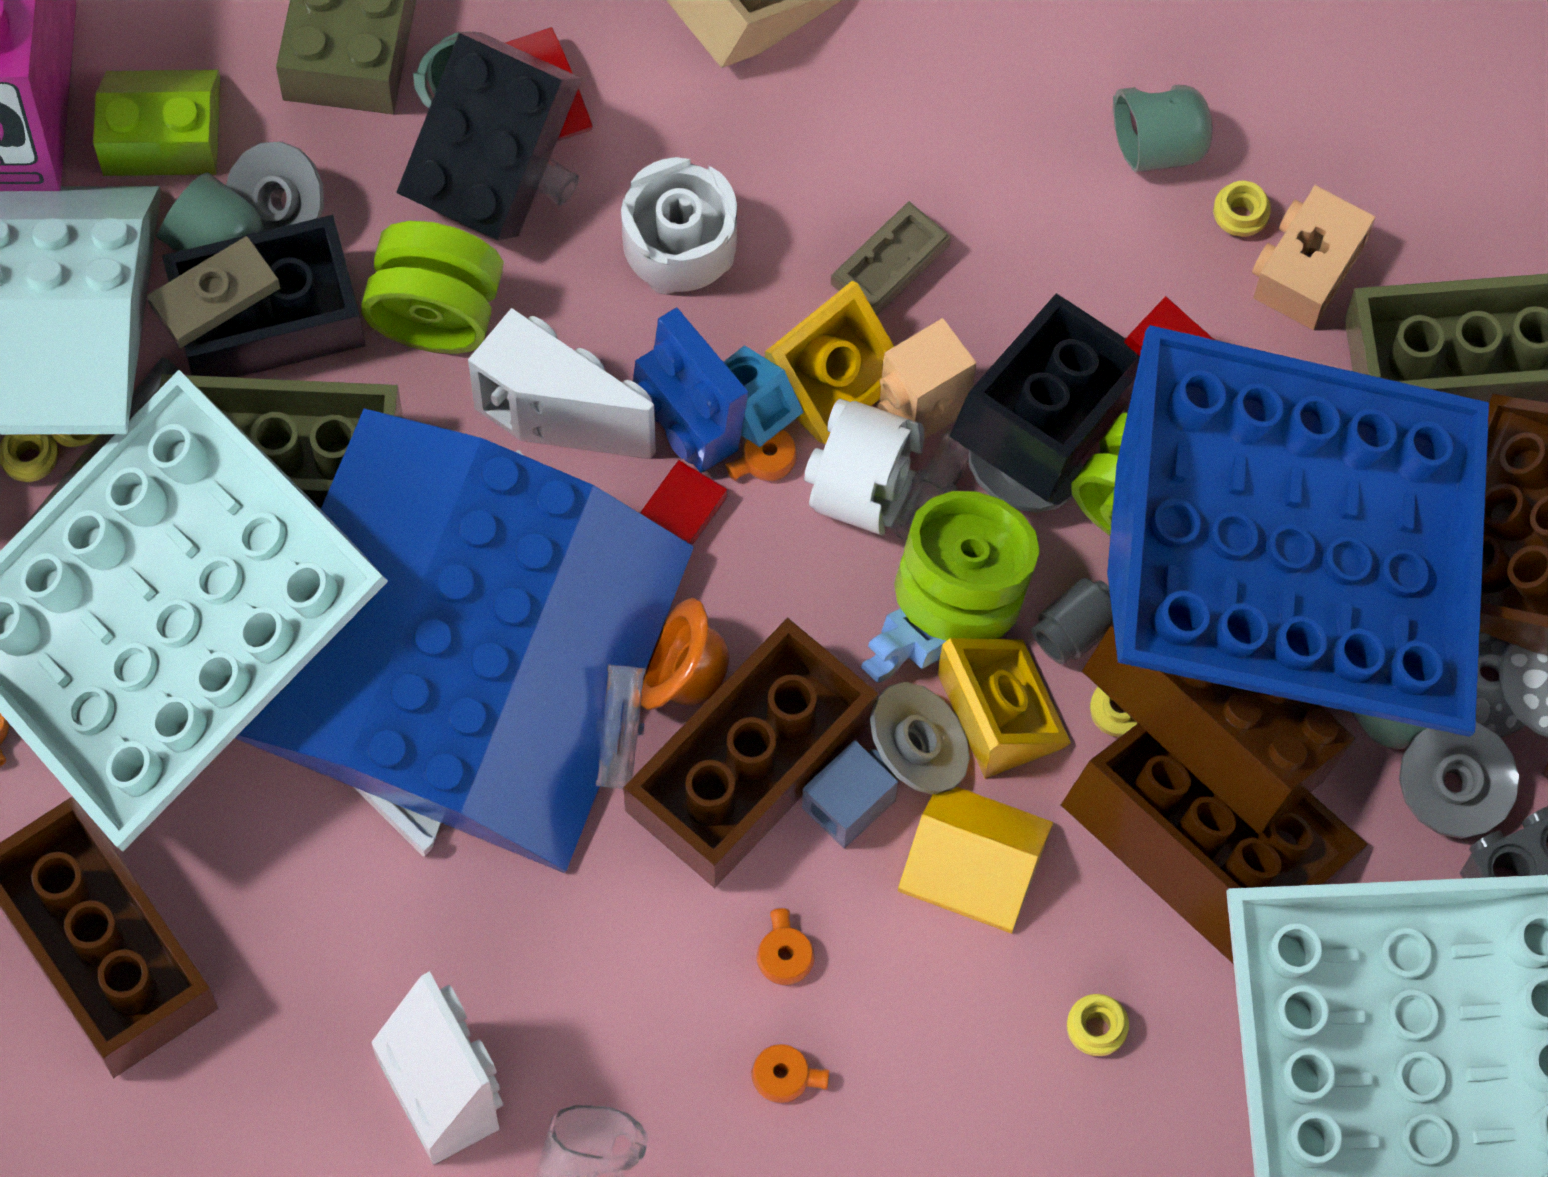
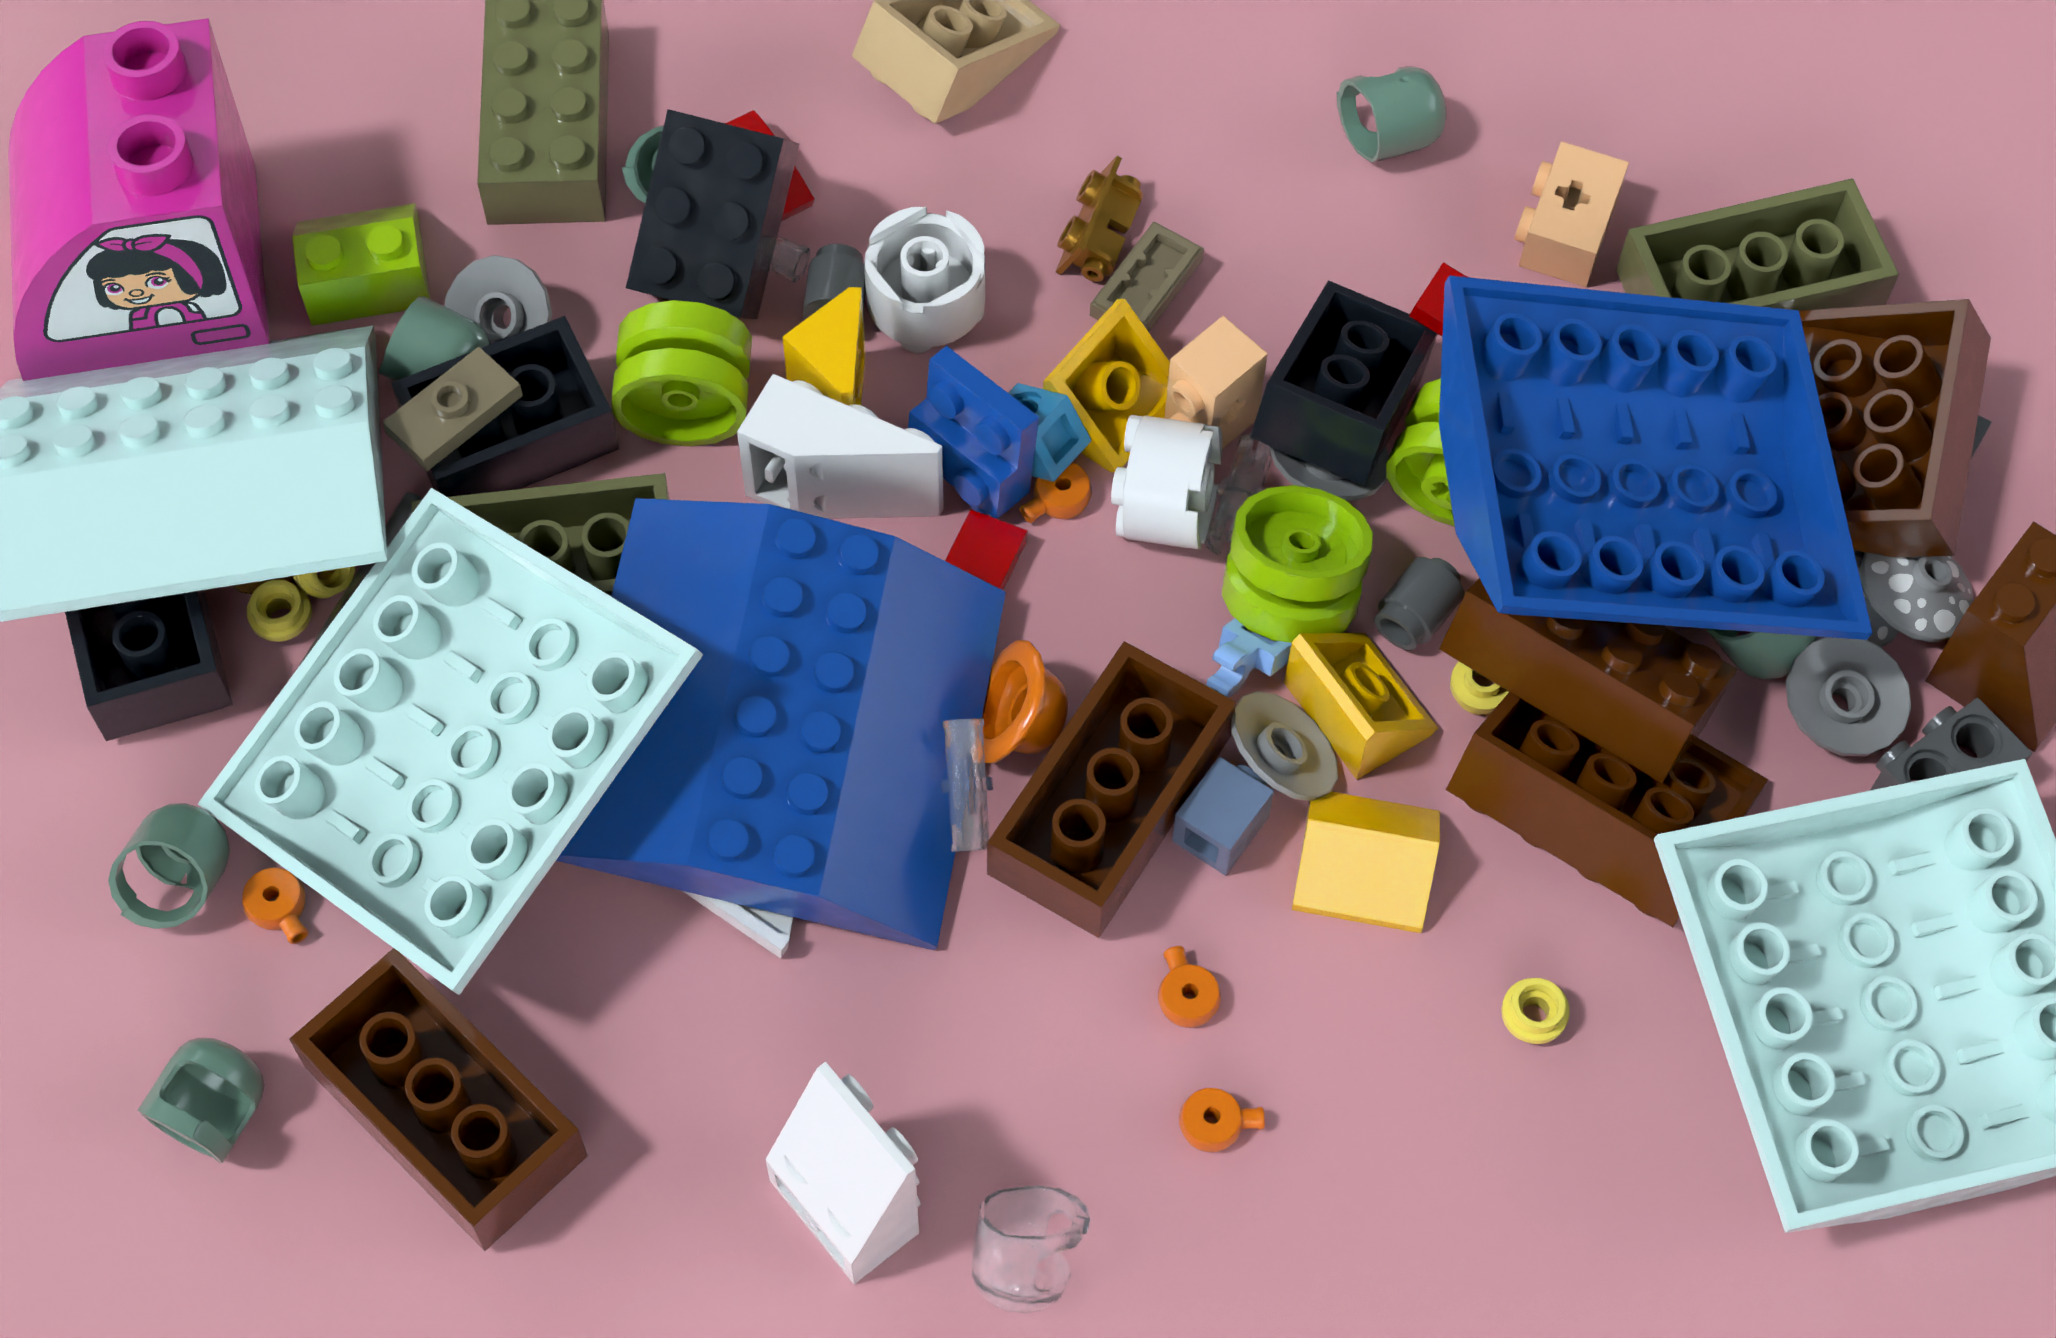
camera: 10 degrees left, 5 degrees down
(574, 292) = (830, 348): none -> yellow slope
(593, 223) = (830, 274): none -> dark grey brick
(869, 173) = (1105, 201): none -> pearl gold hinge
(1245, 195) = (1493, 168): light yellow plate -> none

